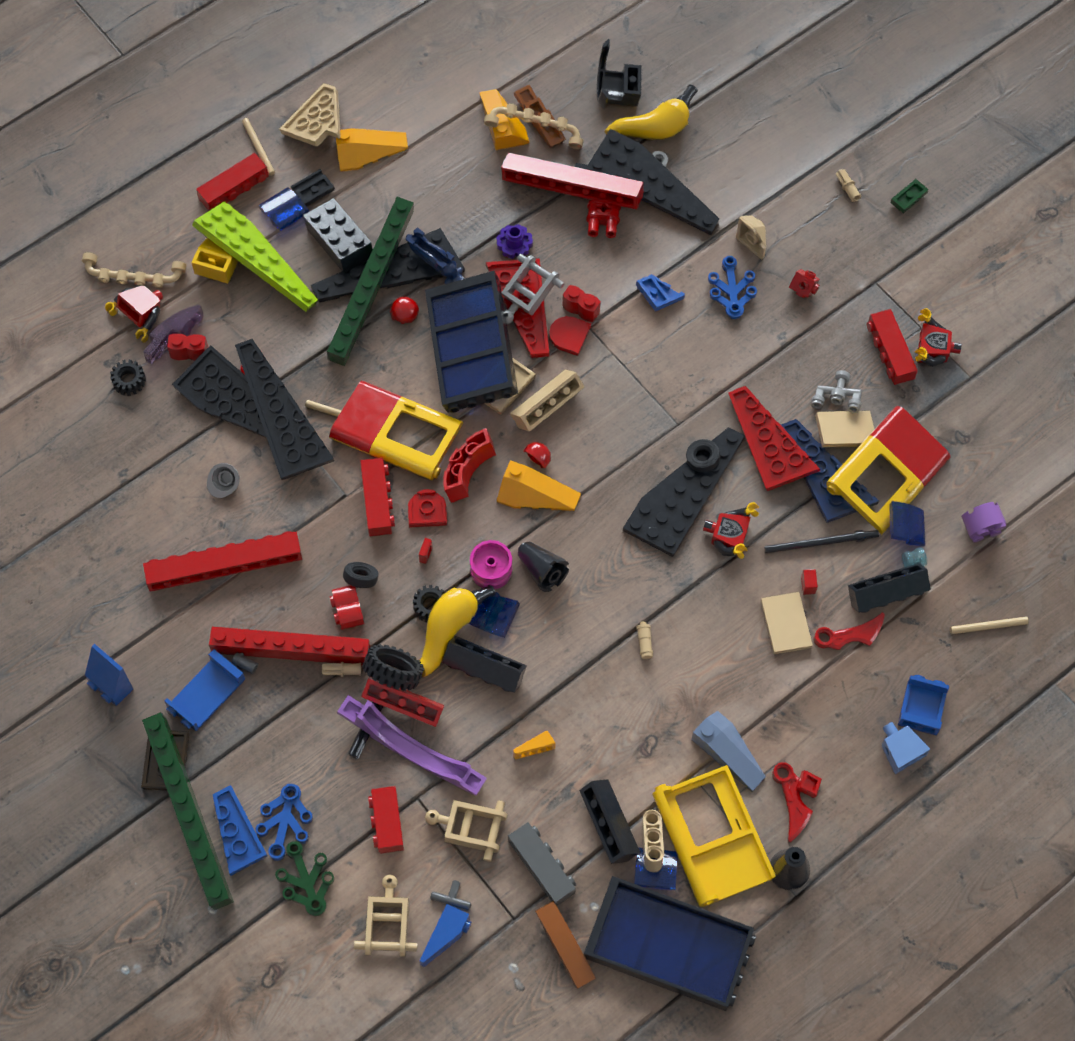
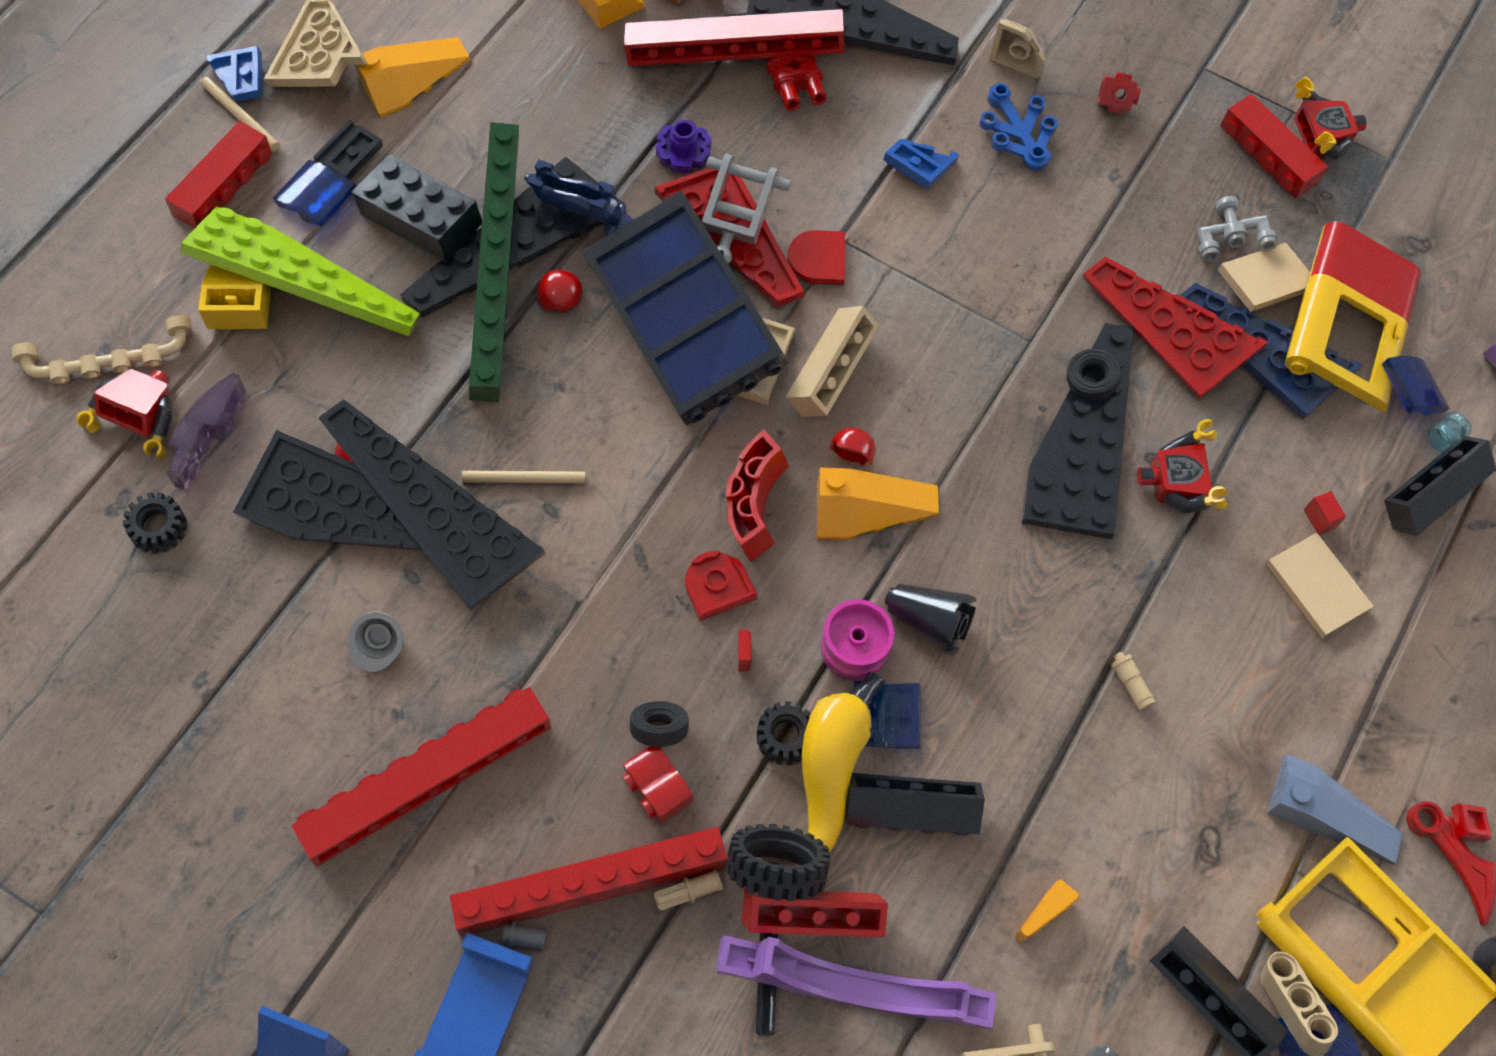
camera: 25 degrees left, 0 degrees up
(186, 347) = (234, 446): red brick -> none
(267, 120) = (239, 72): none -> wing
(369, 419) = (574, 469): piece -> none
(376, 497) = (633, 590): red brick -> none
(581, 303) = (819, 207): red brick -> none
(858, 536) = (1354, 425): black bar -> none
(863, 633) = (1431, 563): red piece -> none

